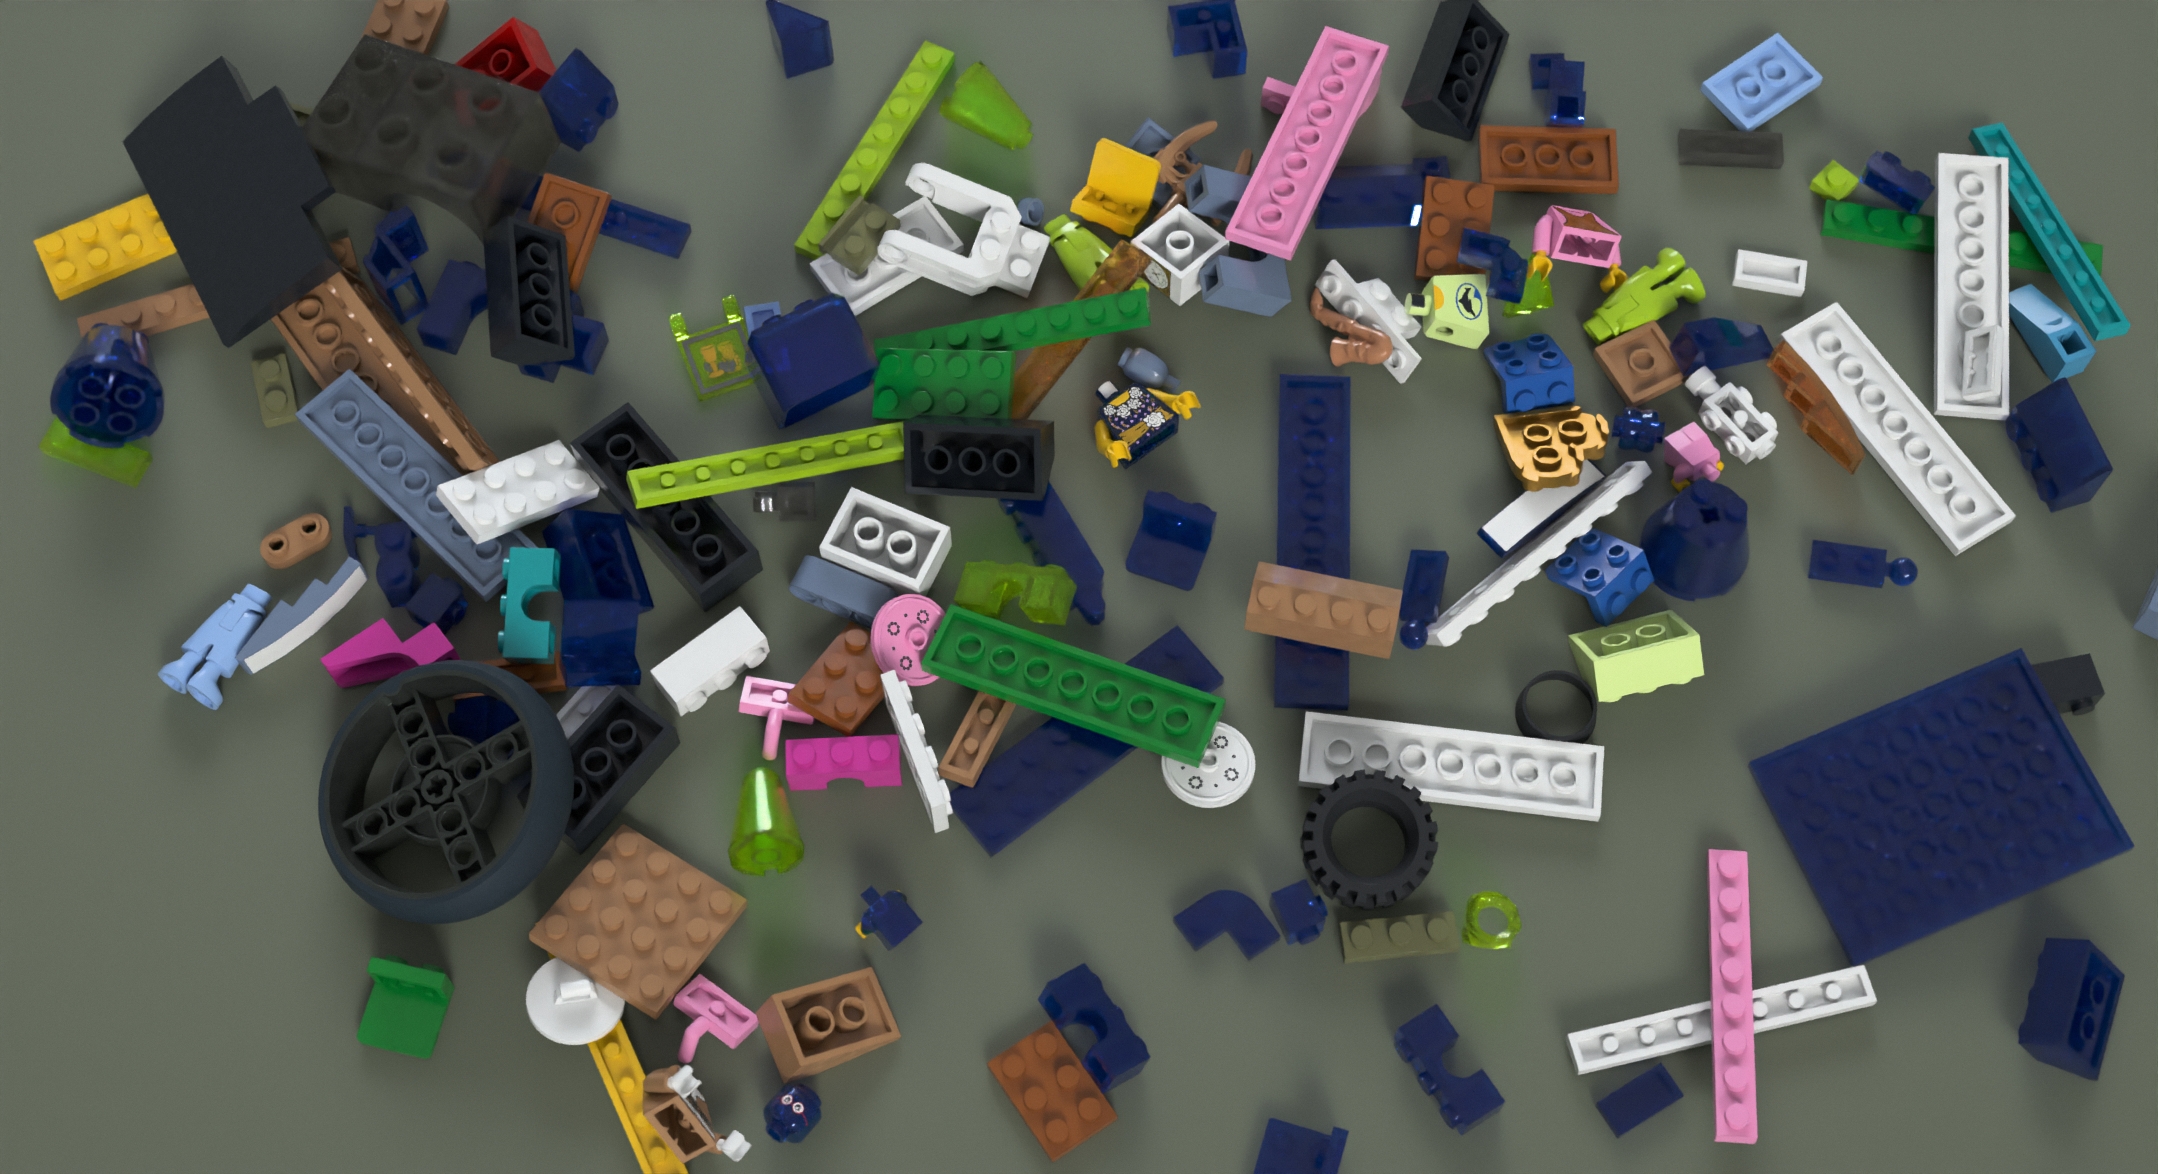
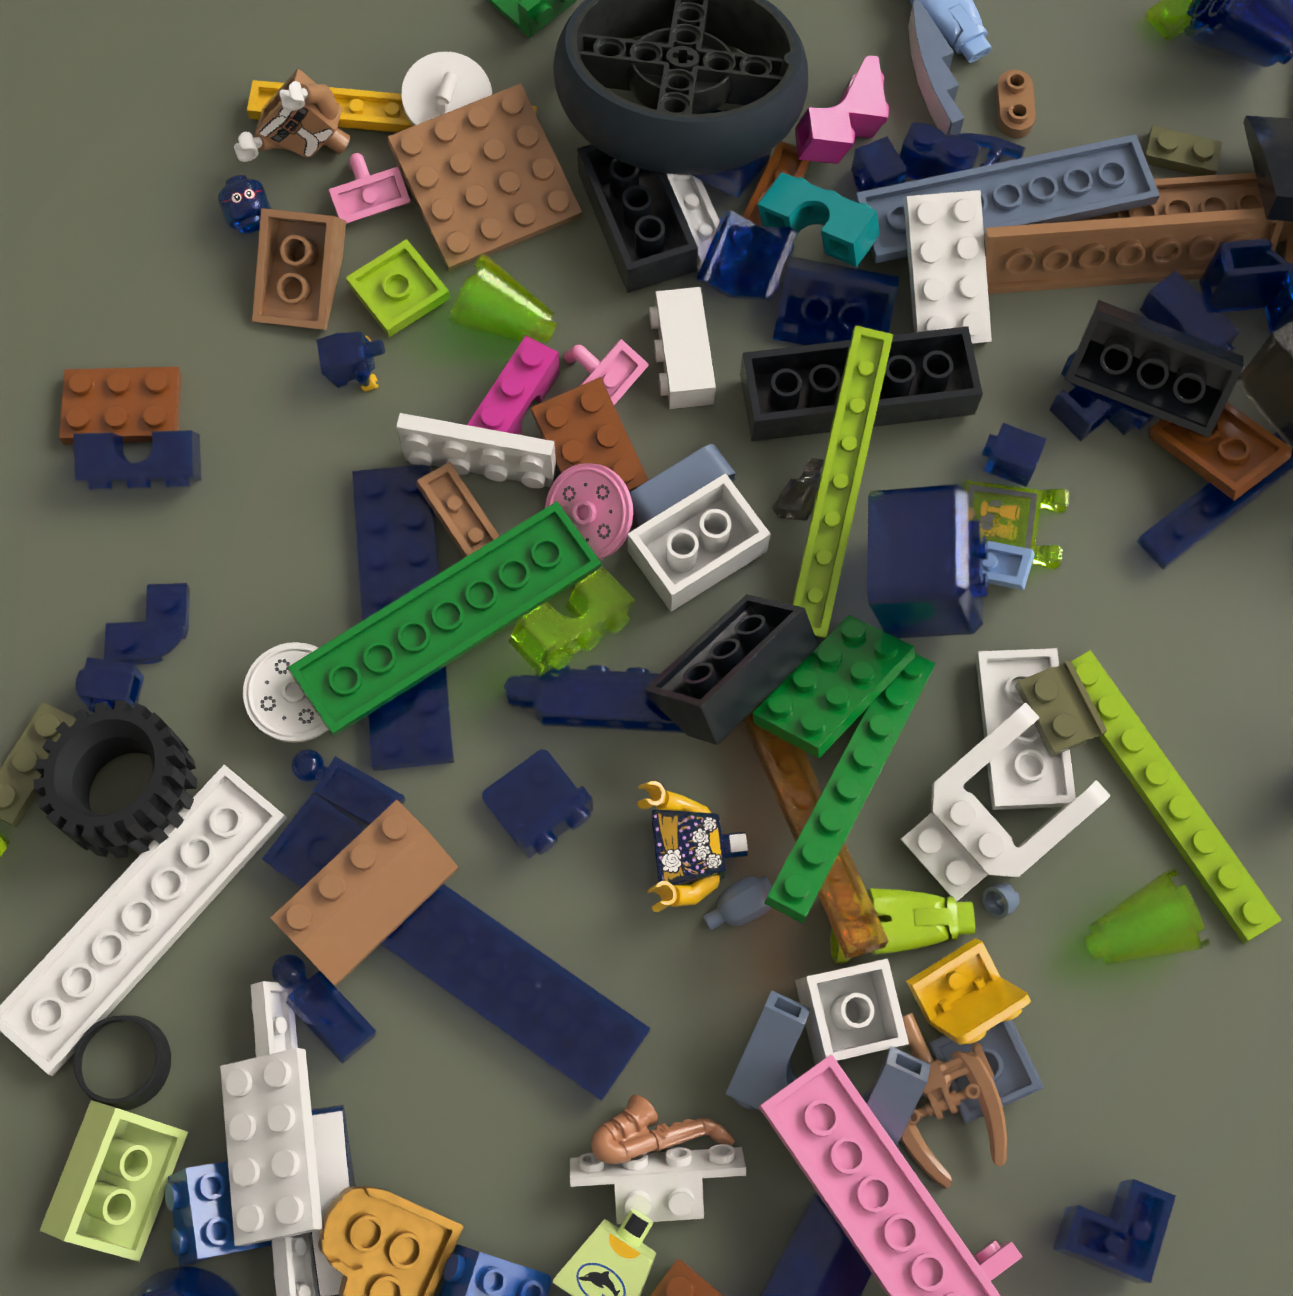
camera: 120 degrees right, 5 degrees up
(660, 367) = (1013, 454): none -> clear blue brick
(794, 928) = (398, 288): none -> lime plate
(1252, 682) = (345, 786): none -> clear blue plate
(1540, 550) = (270, 1147): none -> white plate

